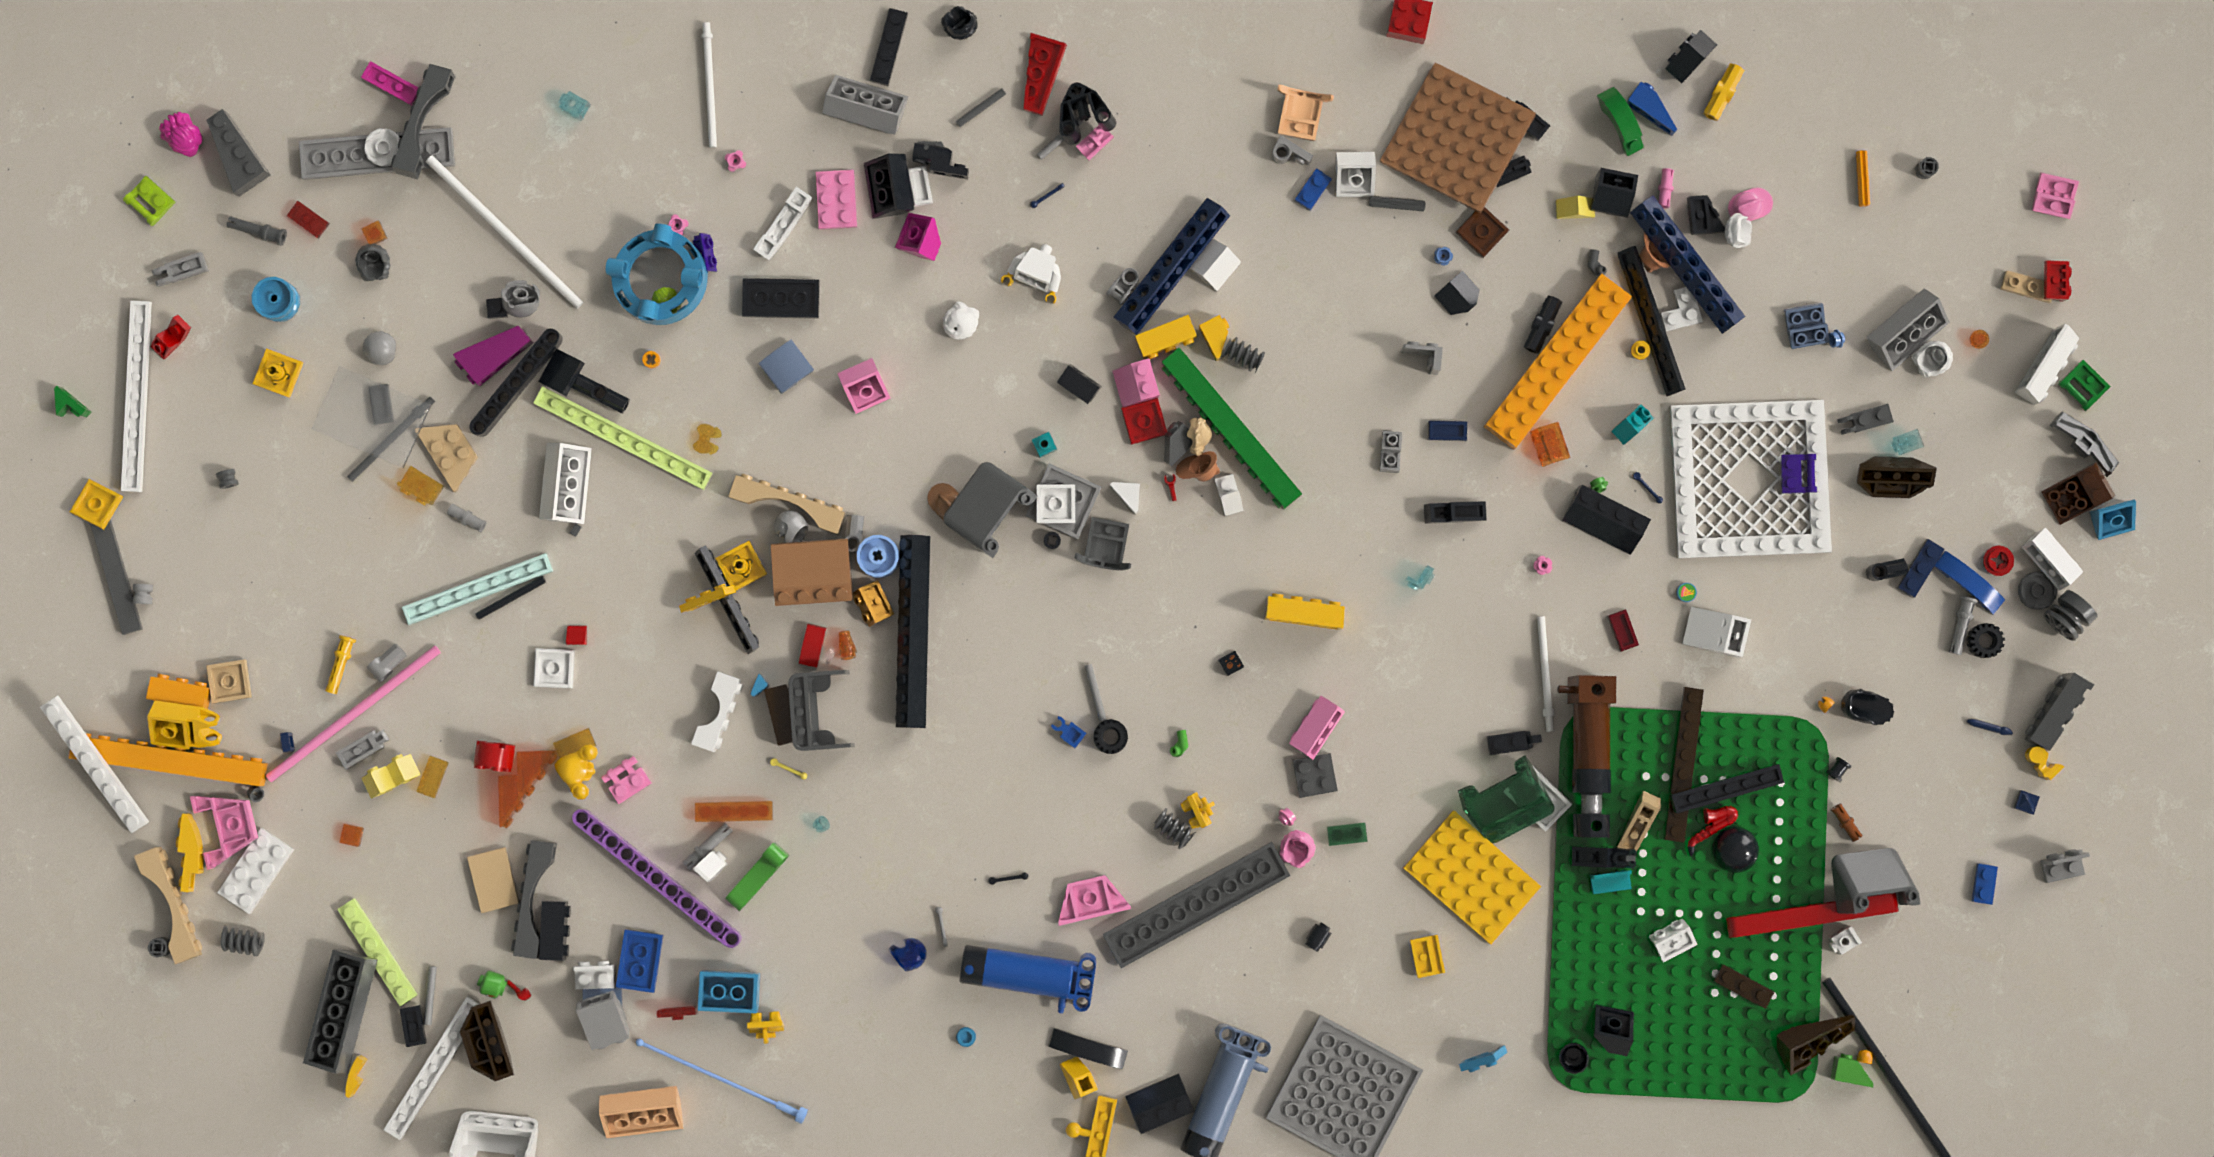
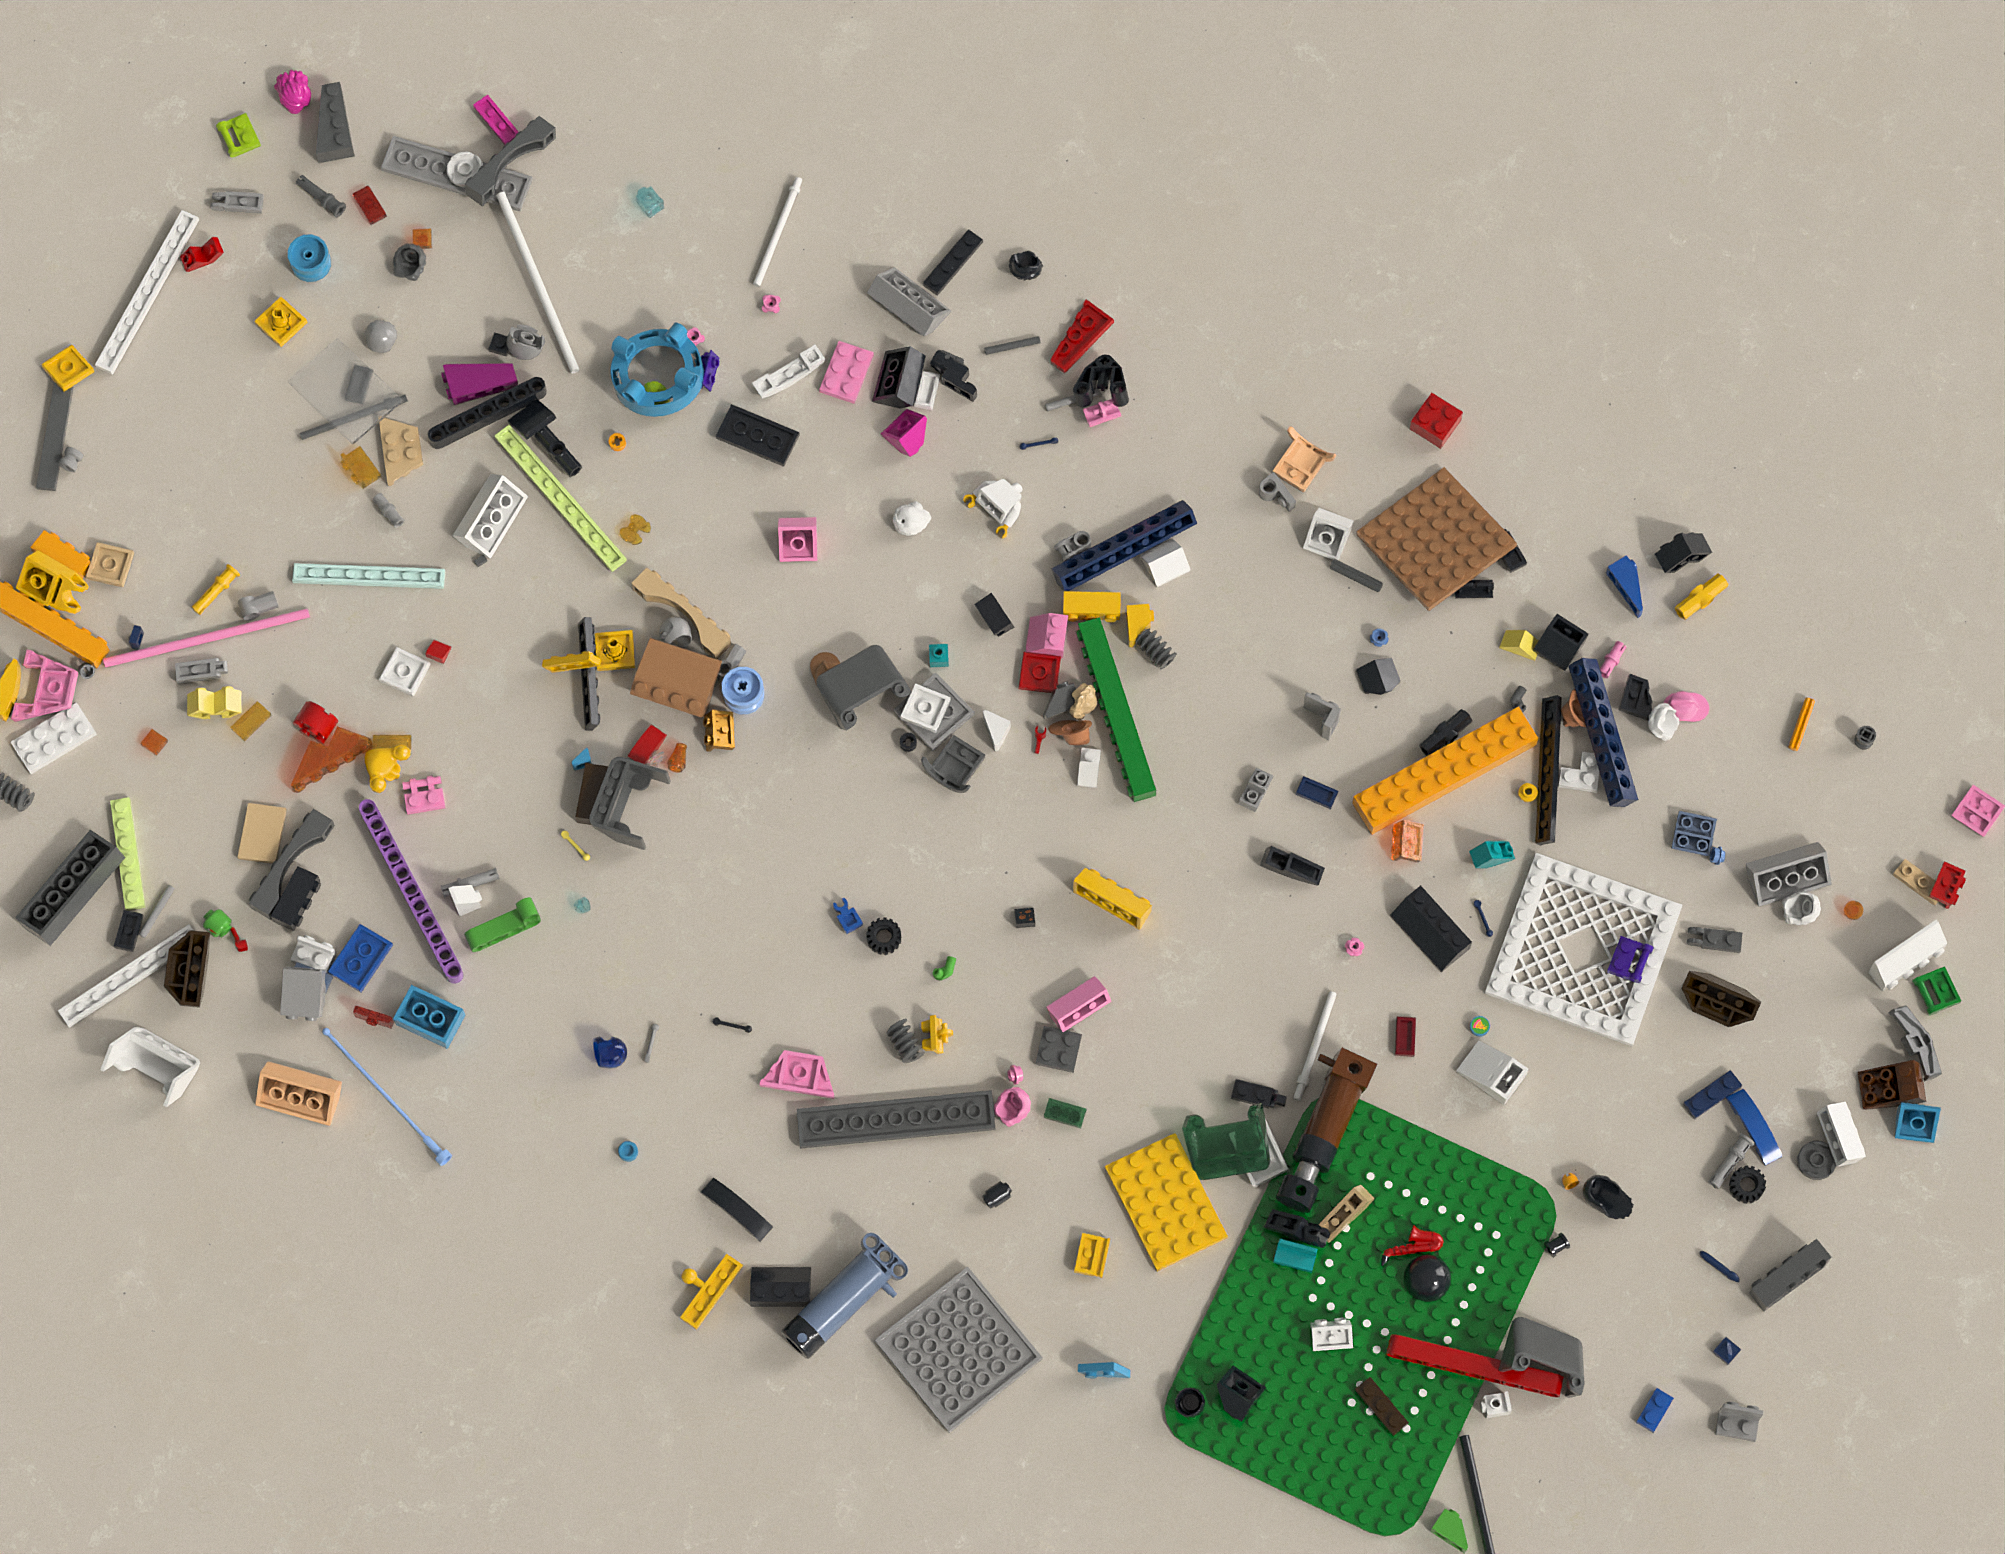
camera: 25 degrees right, 15 degrees down
(65, 401) = (83, 272): green slope -> none
(227, 479) = (192, 392): dark grey wheel -> none
(354, 1081) = (50, 957): yellow slope -> none
(511, 597) = (394, 595): black bar -> none
(726, 689) = (518, 784): white arch -> none
(734, 811) = (508, 861): clear orange plate -> none
(765, 1029) = (446, 1064): yellow hips -> none
(786, 366) = (735, 495): sand blue slope -> none
(912, 631) = (743, 768): black brick -> none
(1029, 974) = (712, 1114): blue piece -> none
(1078, 1077) = (715, 1230): yellow slope -> none
(1095, 692) = (887, 891): light grey bar -> none
(1313, 189) = (1284, 533): blue plate -> none
(1425, 577) = (1239, 912): clear light blue bracket -> none
(1482, 231) = (1425, 631): reddish brown tile -> none
(1599, 484) = (1438, 894): bright green plate -> none
(1623, 119) = (1596, 584): green arch -> none
(1684, 759) = (1410, 1179): dark brown plate -> none
(1726, 788) = (1441, 1214): black plate -> none
(1806, 1041) = (1422, 1482): dark brown wedge -> none
(1846, 822) = (1544, 1297): dark orange pin -> none
(1864, 1056) = (1471, 1523): light orange hinge -> none
(1887, 569) = (1681, 1081): black piece -> none
(1907, 442) = (1745, 974): clear light blue bracket -> none
(2005, 555) = (1788, 1108): red gear -> none
(2039, 757) = (1753, 1311): yellow leg -> none
(2070, 615) = (1837, 1190): dark grey wheel -> none

